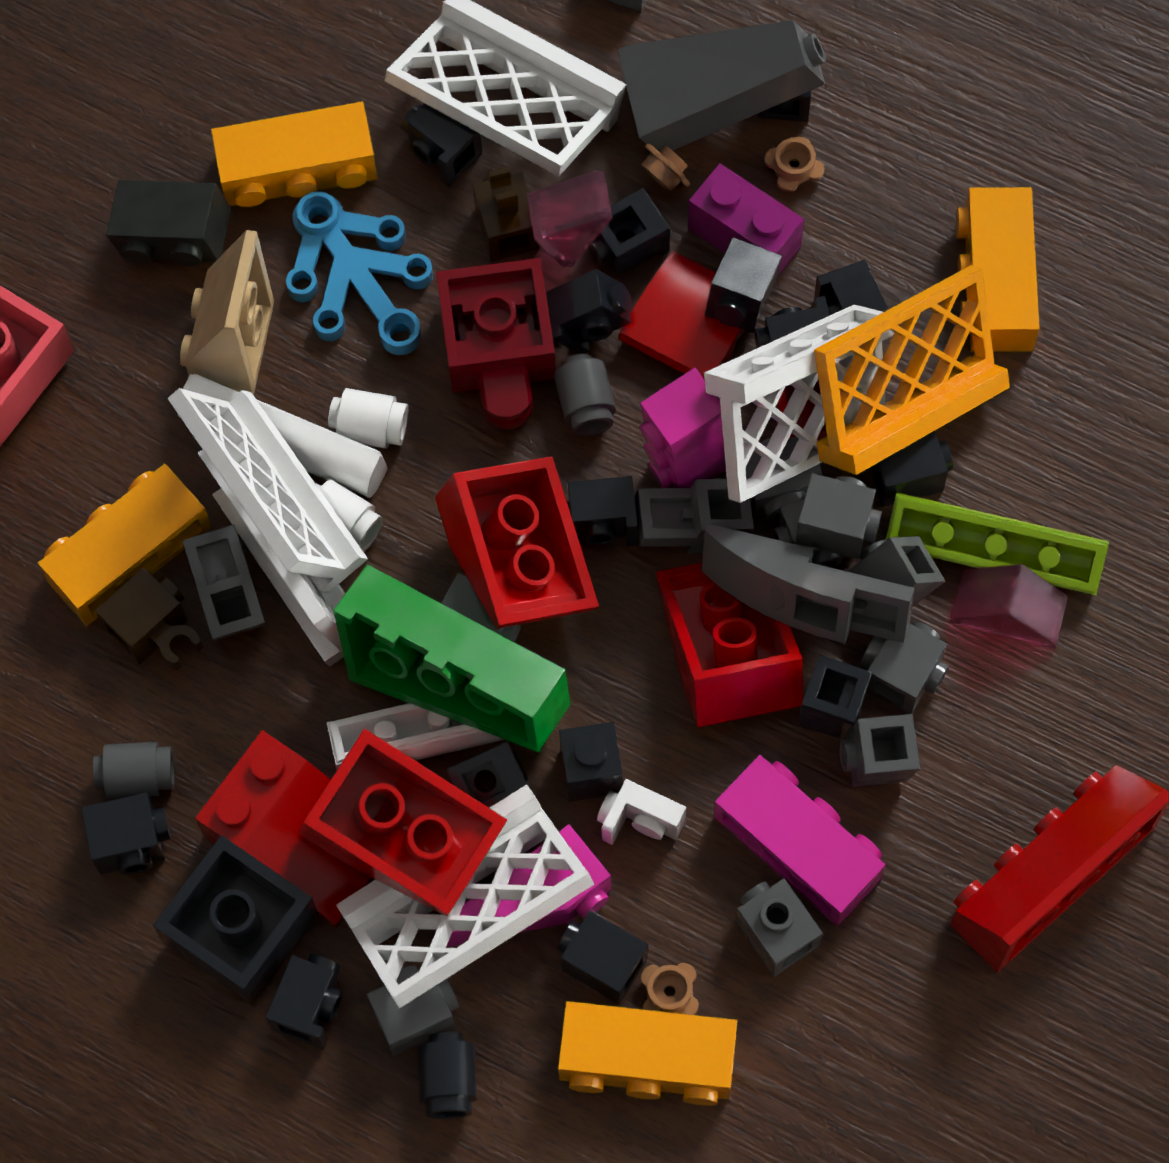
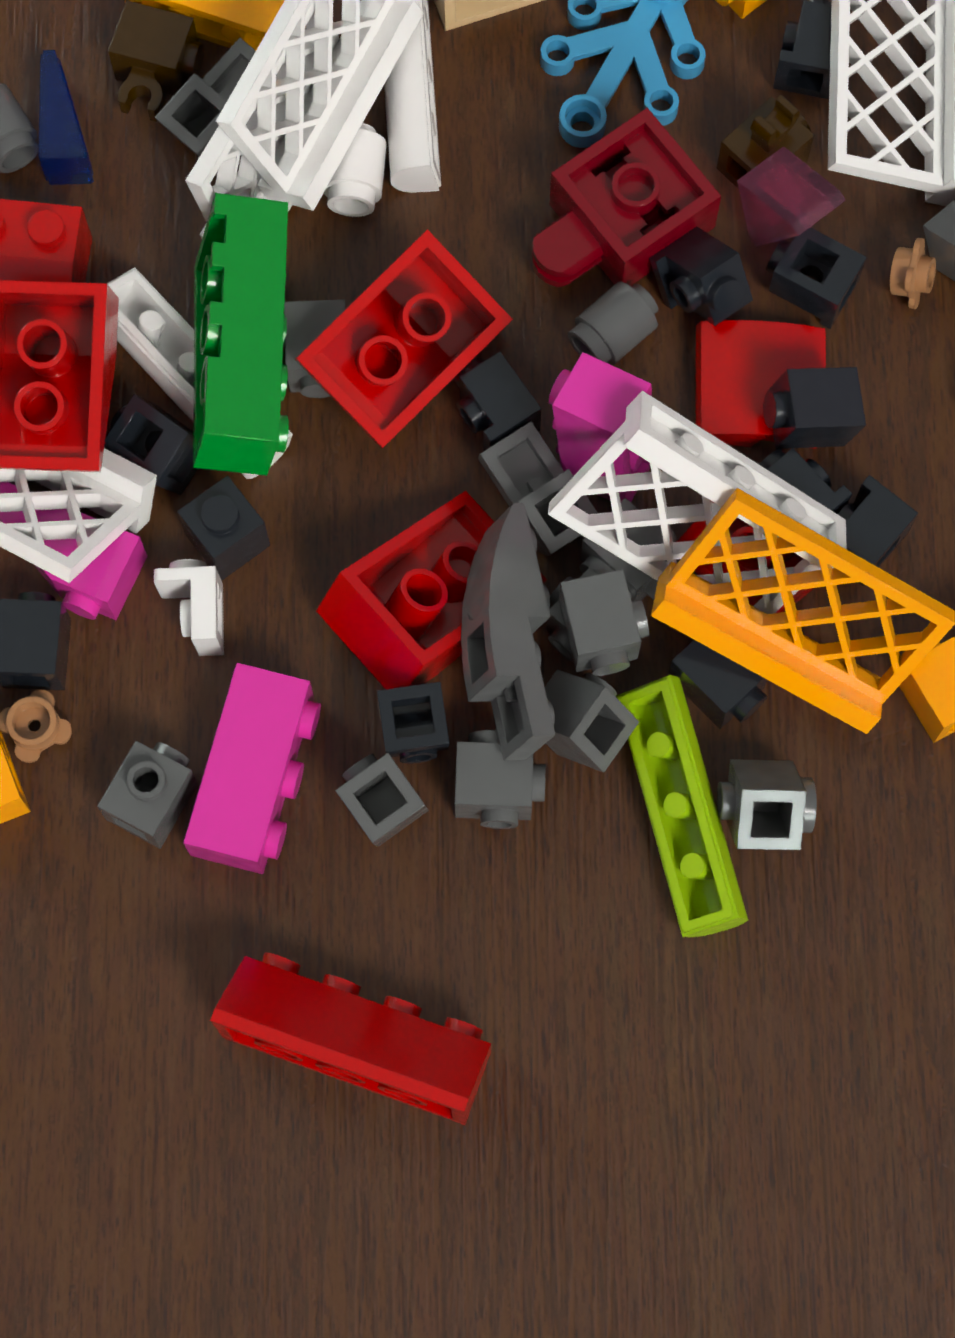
camera: 60 degrees right, 5 degrees up
(172, 722) = (60, 135): none -> clear blue slope
(369, 418) = (471, 140): white brick -> none
(734, 208) = (896, 378): magenta brick -> none
(1010, 604) = (625, 857): clear pink slope -> none
(1030, 480) = (767, 804): none -> dark grey brick

